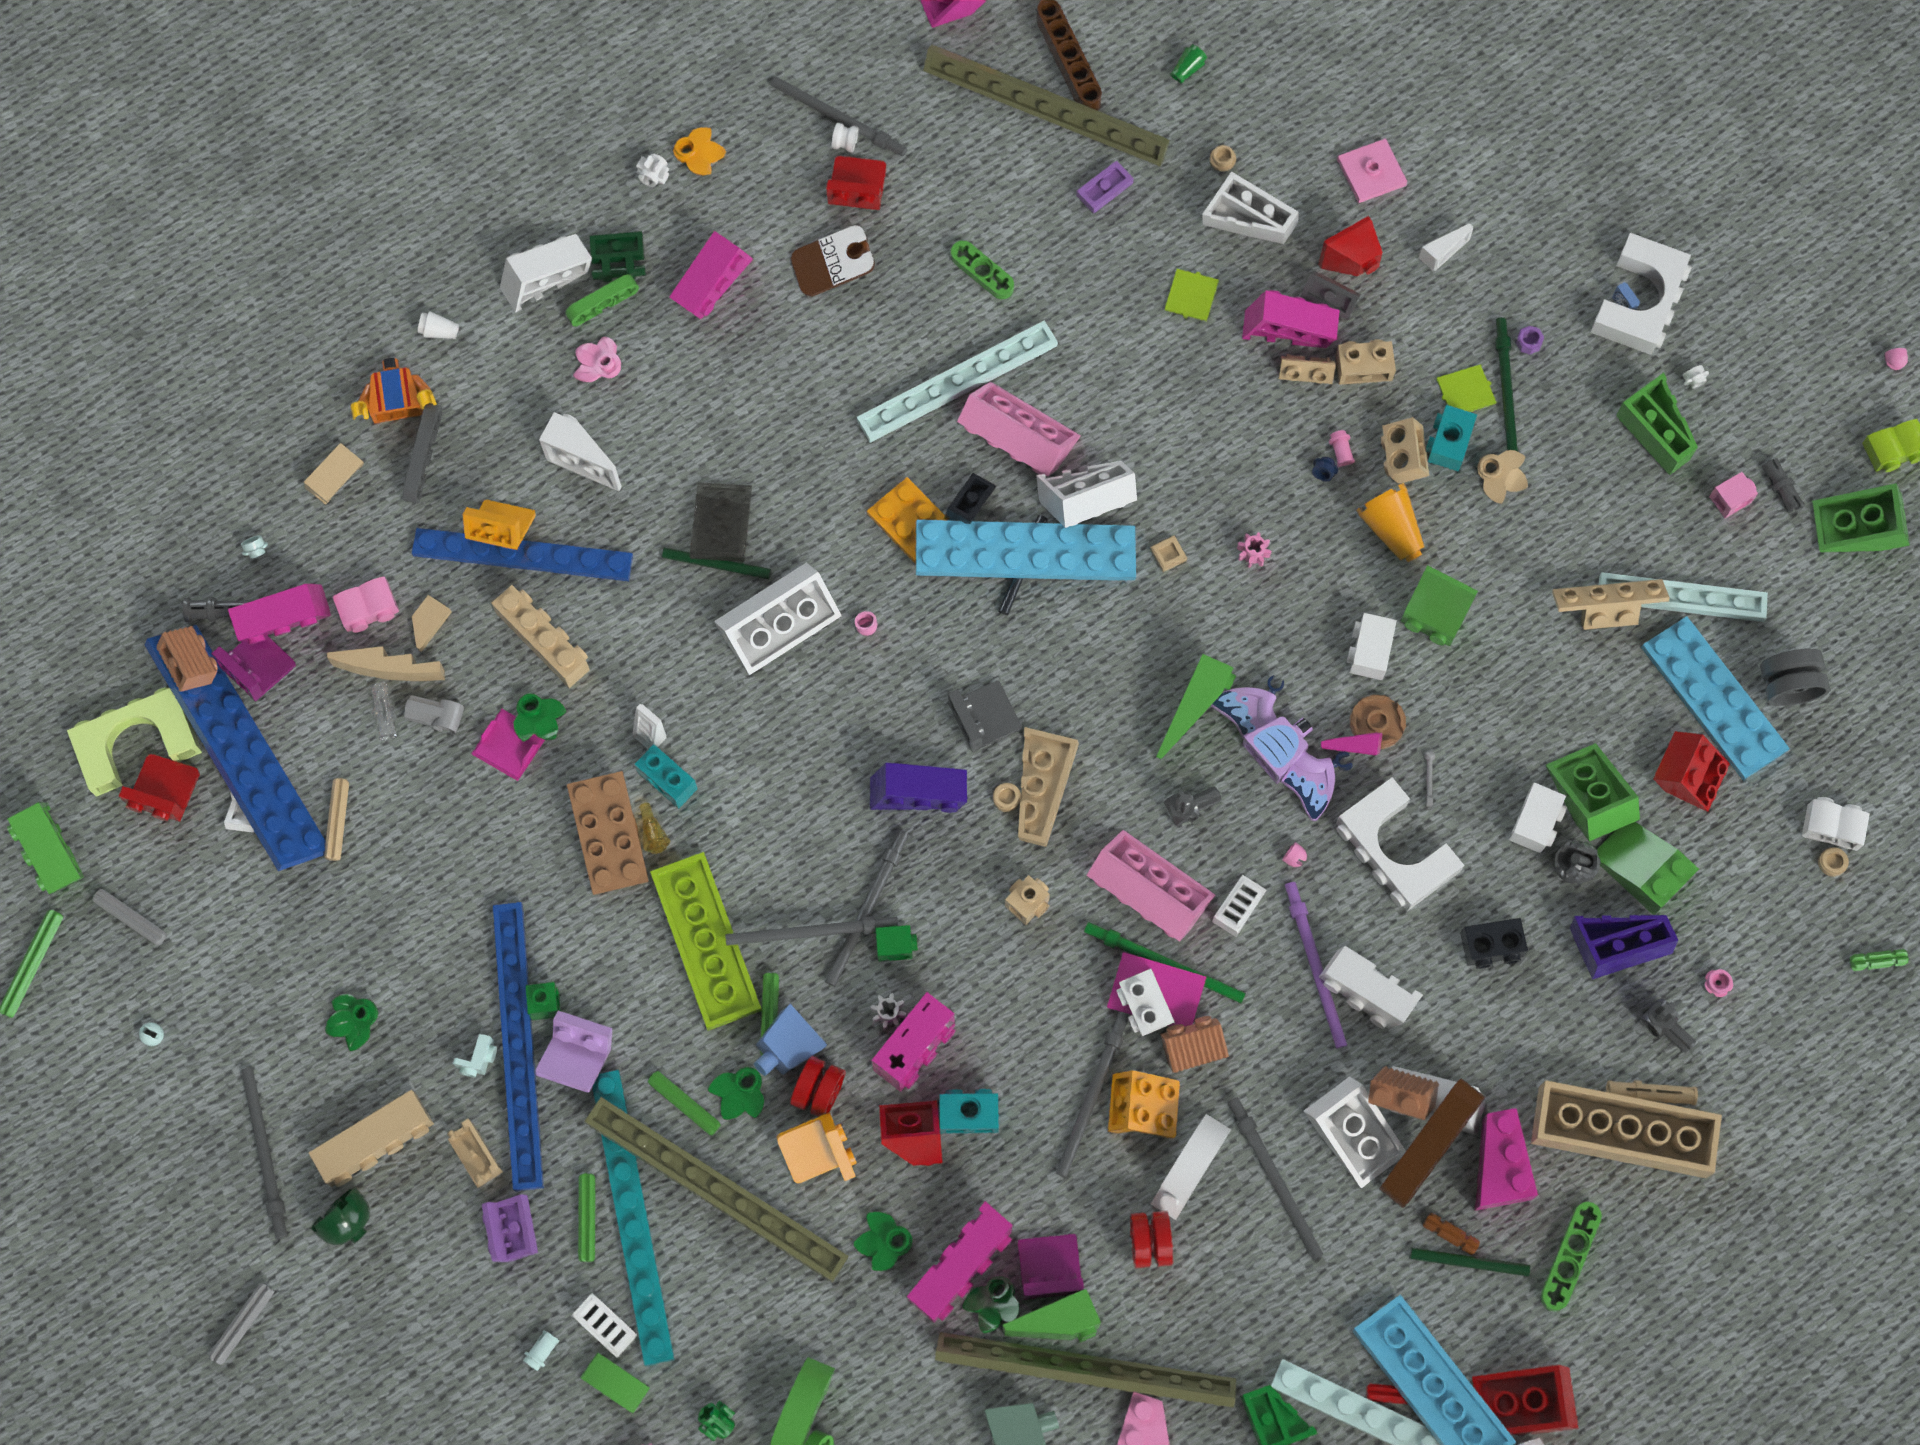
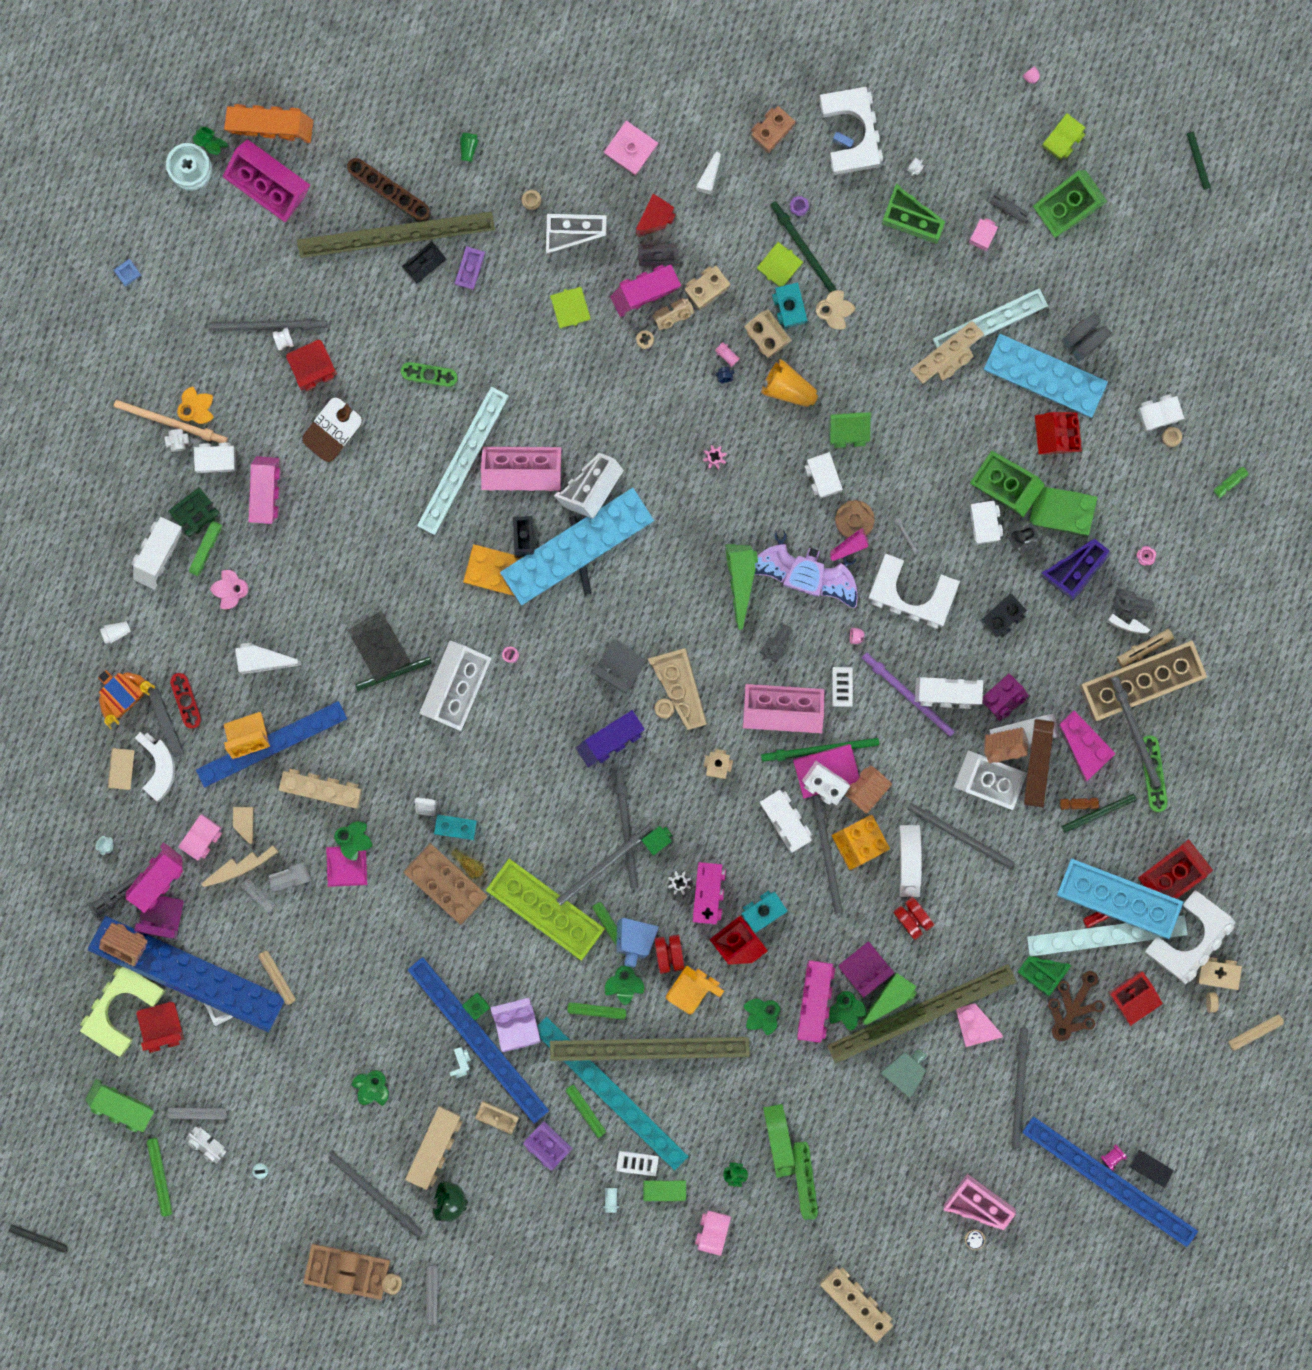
camera: 30 degrees left, 15 degrees up
(112, 971) = (199, 1141): none -> white hinge
(161, 1224) = (346, 1271): none -> medium nougat plate
(202, 1276) = (391, 1284): none -> tan tile
(382, 505) = (165, 766): none -> white arch
(448, 463) = (175, 688): none -> red beam
(680, 212) = (215, 459): none -> white brick
(689, 184) = (206, 434): none -> light nougat bar
(1057, 154) = (424, 262): none -> black slope
(1068, 1019) = (786, 820): none -> white wedge
(1168, 553) = (663, 491): tan tile -> none
(1250, 372) = (650, 342): none -> tan bush
(1435, 1042) = (1005, 697): none -> magenta bracket
(1550, 241) = (772, 129): none -> nougat brick
(1590, 1125) = (1121, 695): none -> dark grey bar
(1653, 1057) = (1133, 627): none -> white slope

